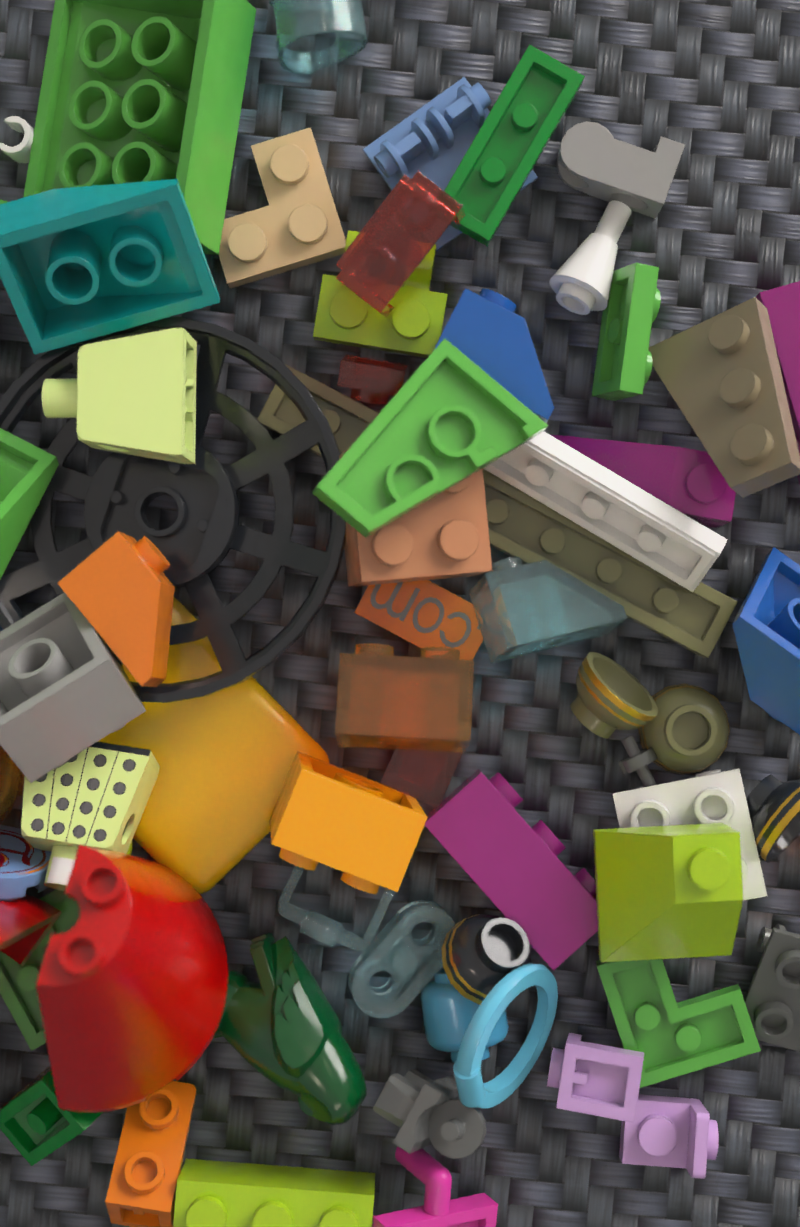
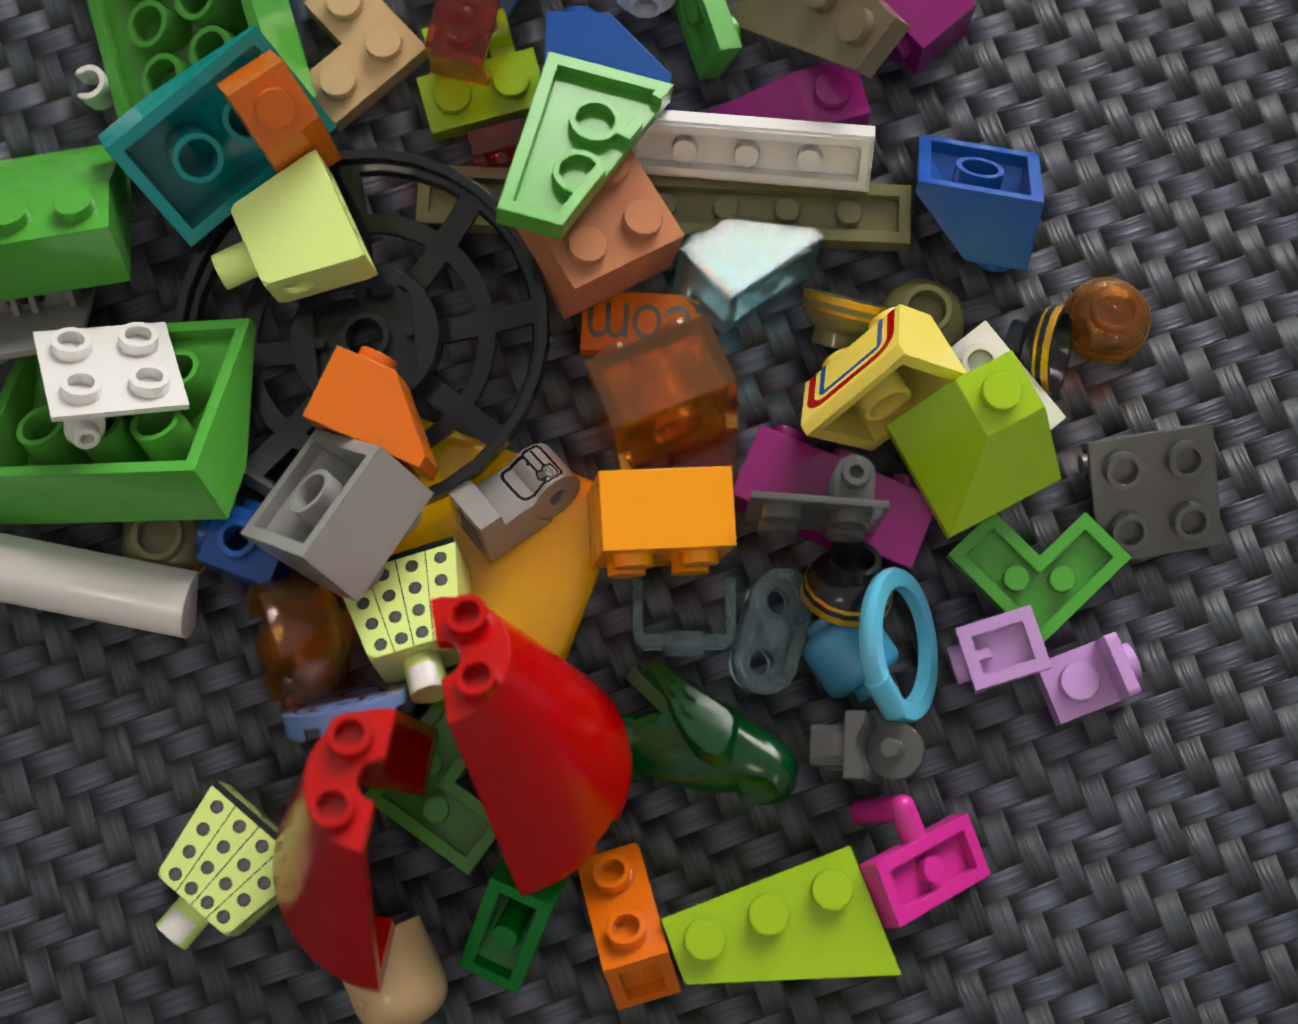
camera: 25 degrees left, 10 degrees down
(159, 274) = (277, 112): none -> orange slope
(229, 730) = (514, 500): none -> light grey leg
(511, 908) = (842, 514): none -> dark grey hinge
(609, 783) = (878, 379): none -> light yellow slope

